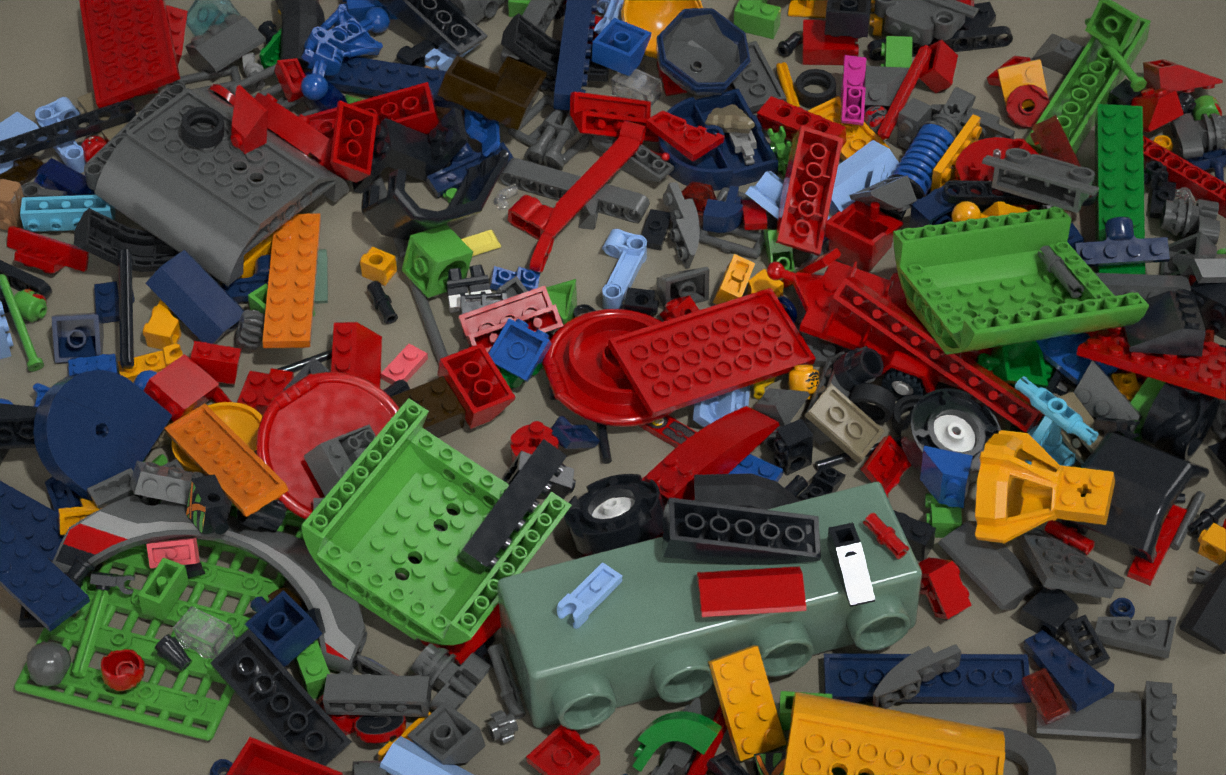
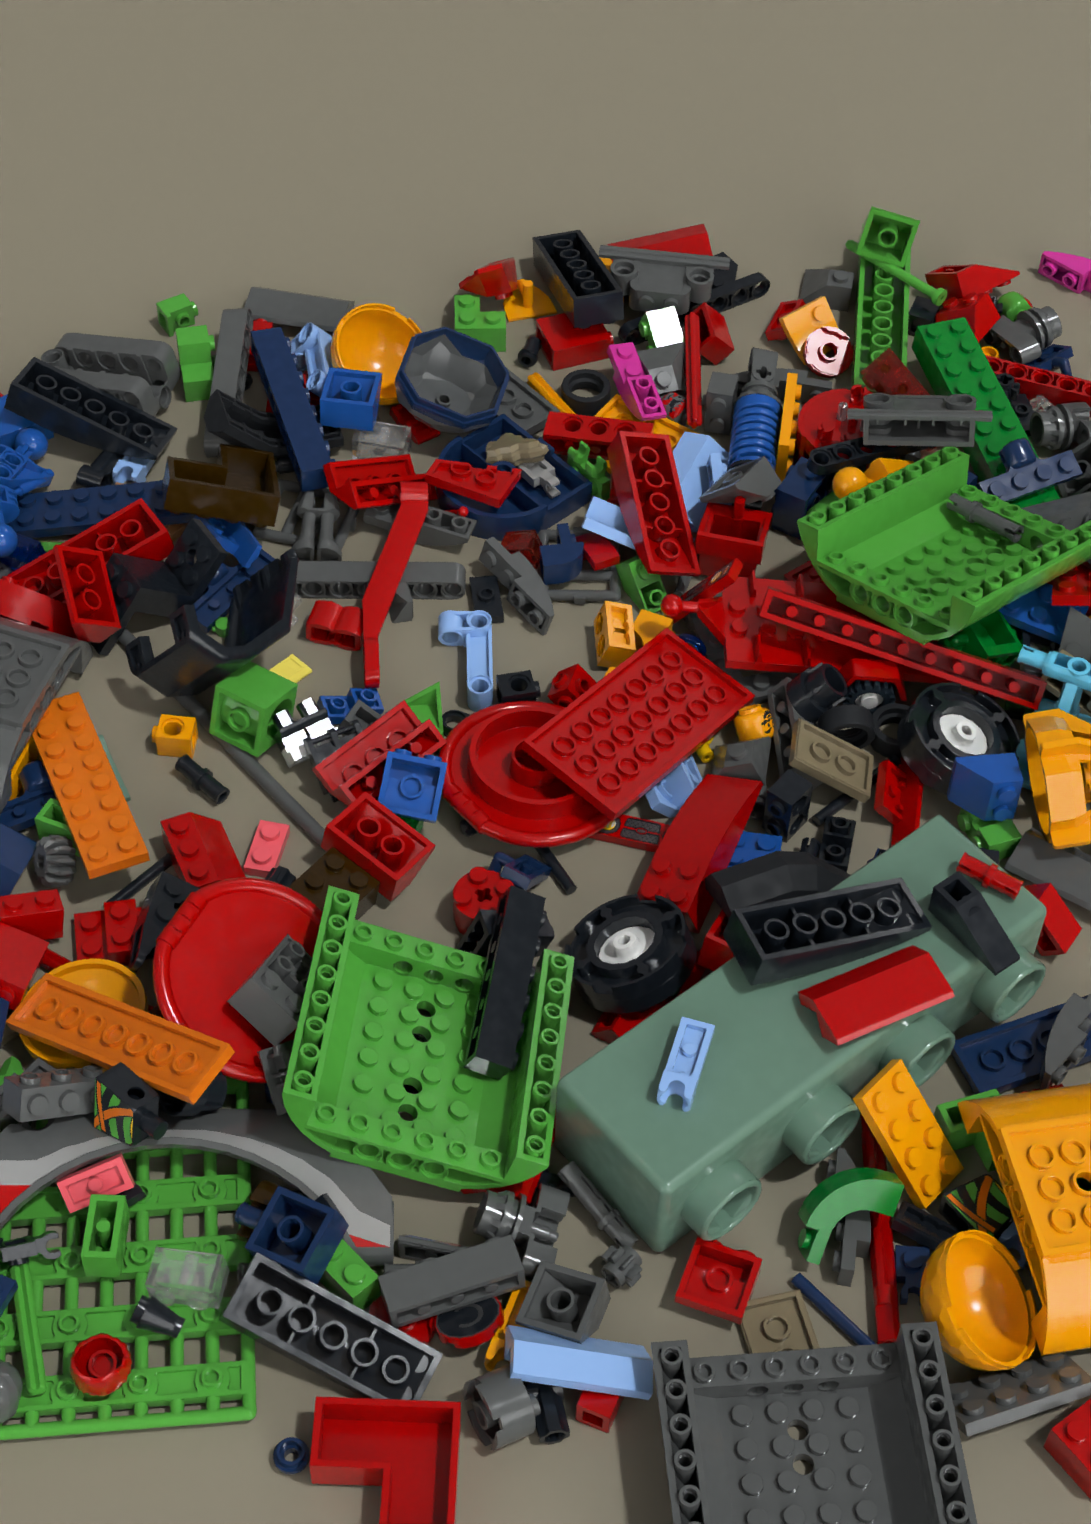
camera: 25 degrees left, 0 degrees up
(684, 283) = (558, 654): dark grey slope -> none

